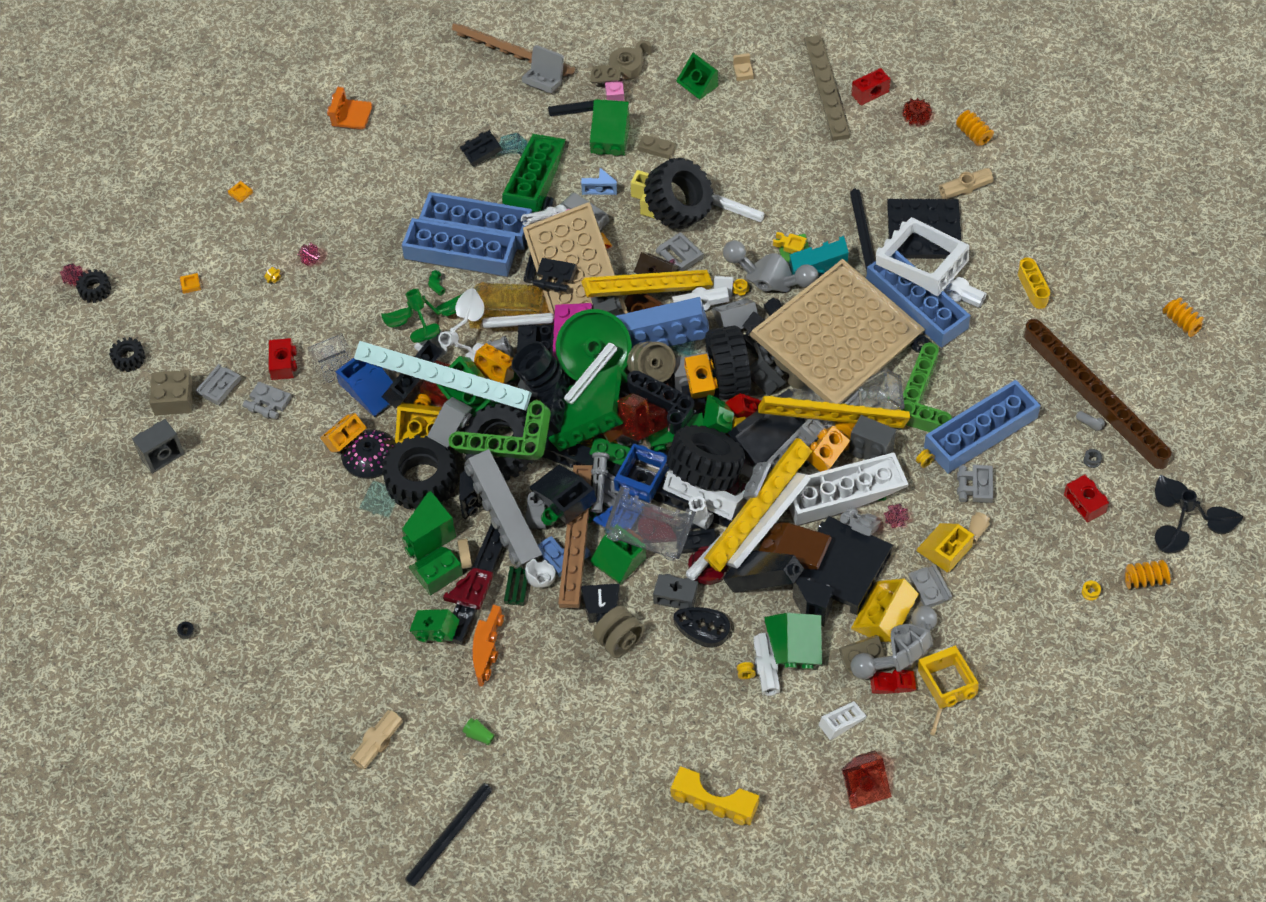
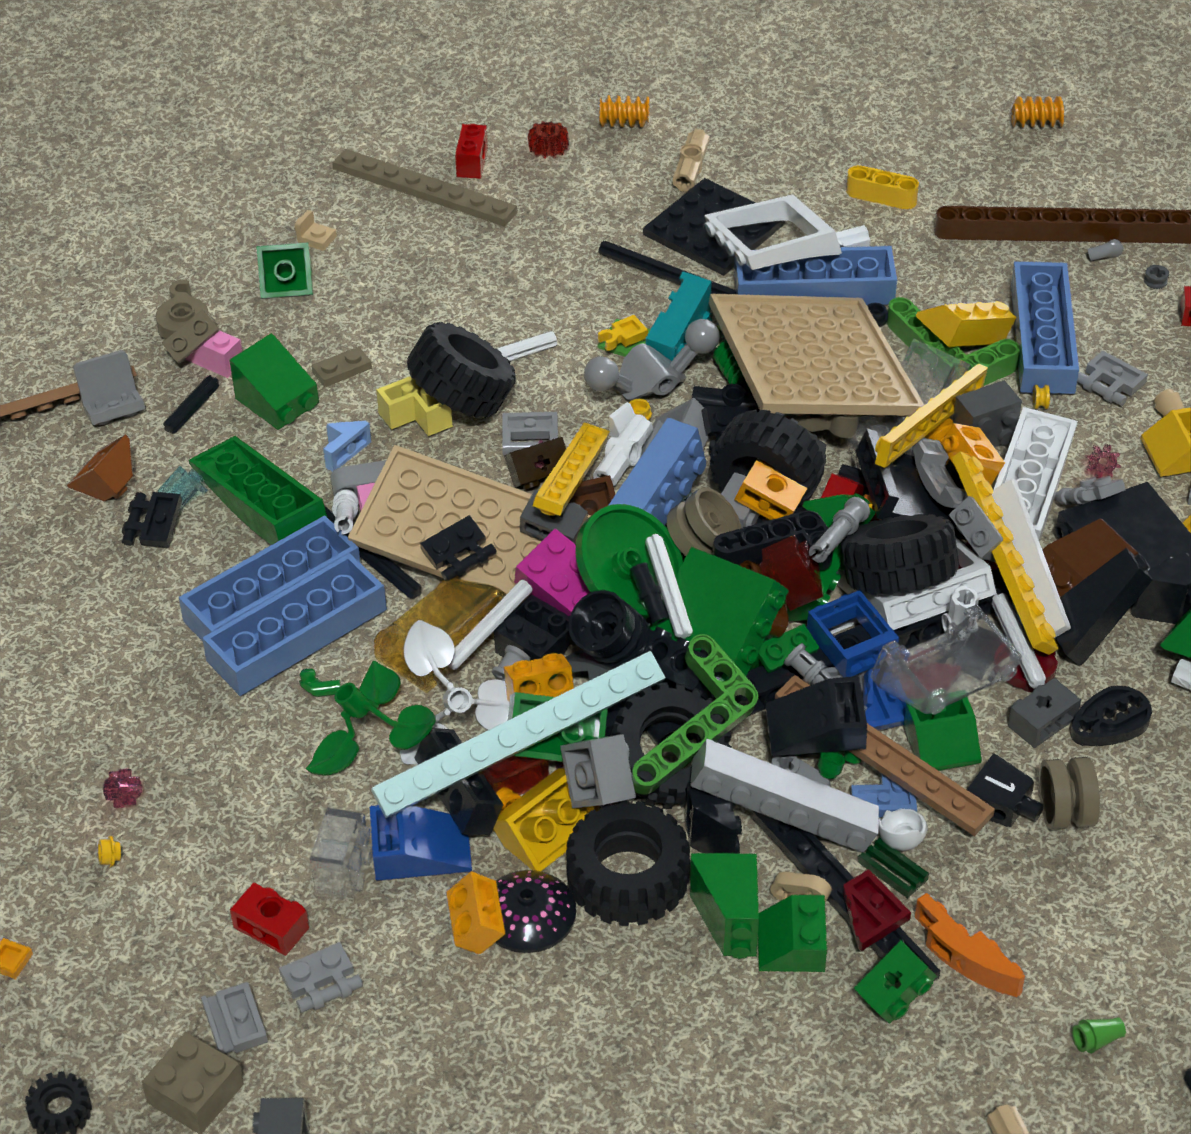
camera: 55 degrees left, 10 degrees down
(378, 500) = (613, 943): clear light blue piece -> none
(493, 109) = (106, 471): none -> dark orange slope
(579, 368) = (649, 593): none -> black pin
(695, 418) = (844, 523): none -> light grey pin
(944, 388) = (969, 323): none -> yellow slope

